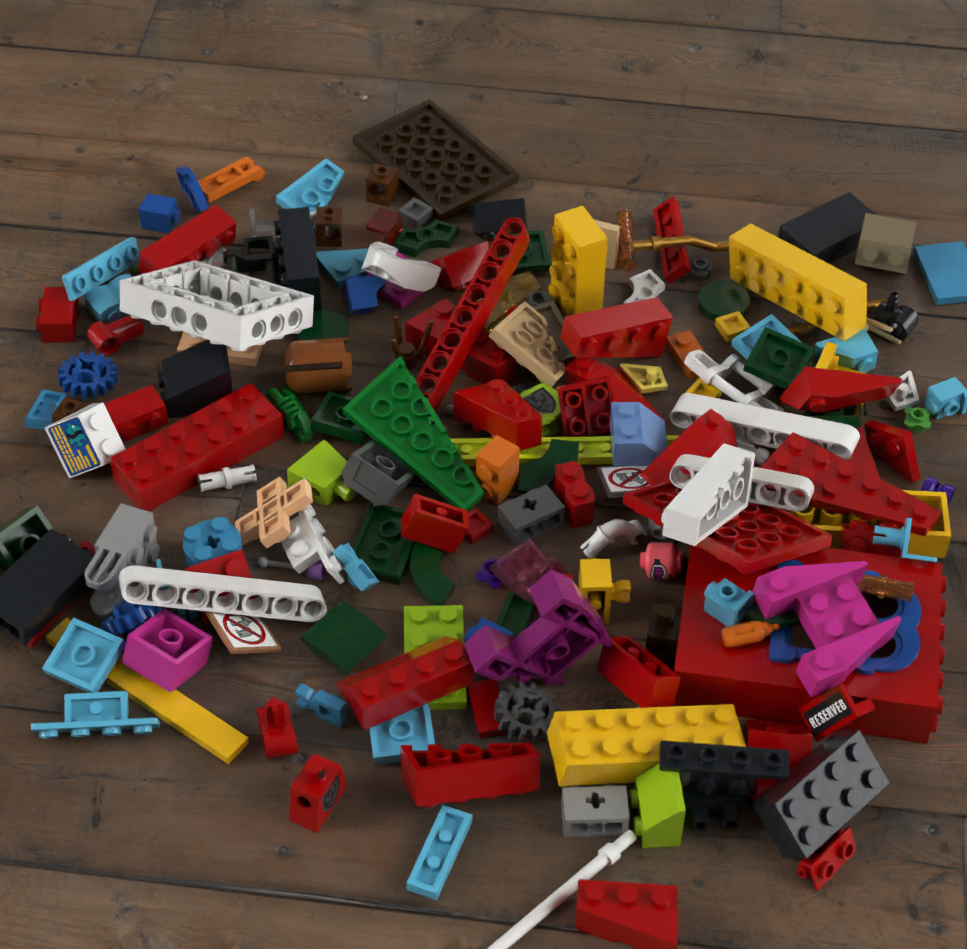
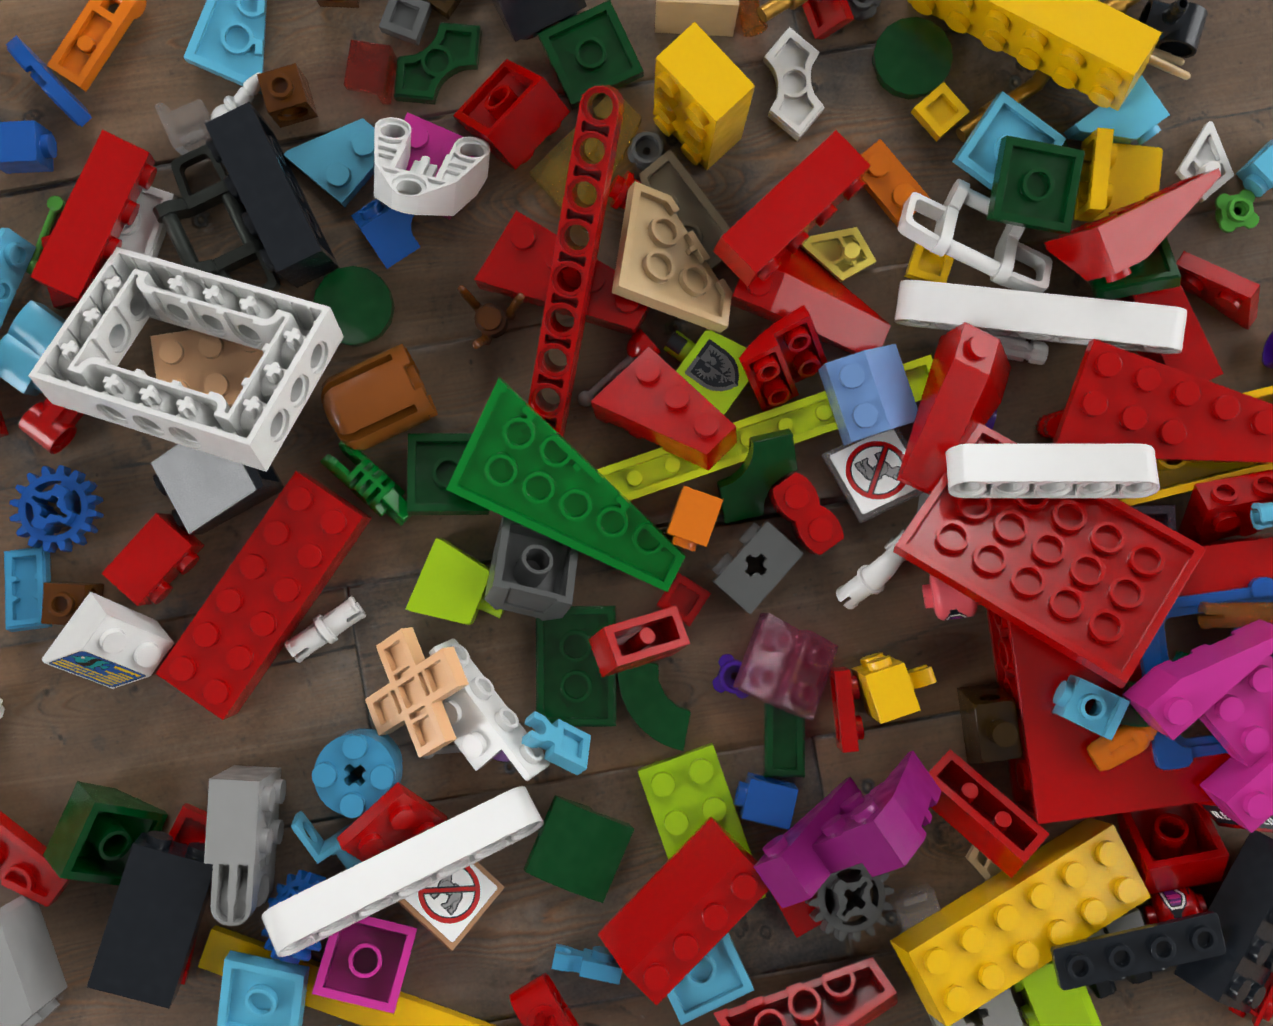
camera: 20 degrees left, 40 degrees up
(711, 496) = (1034, 562): white wedge -> none

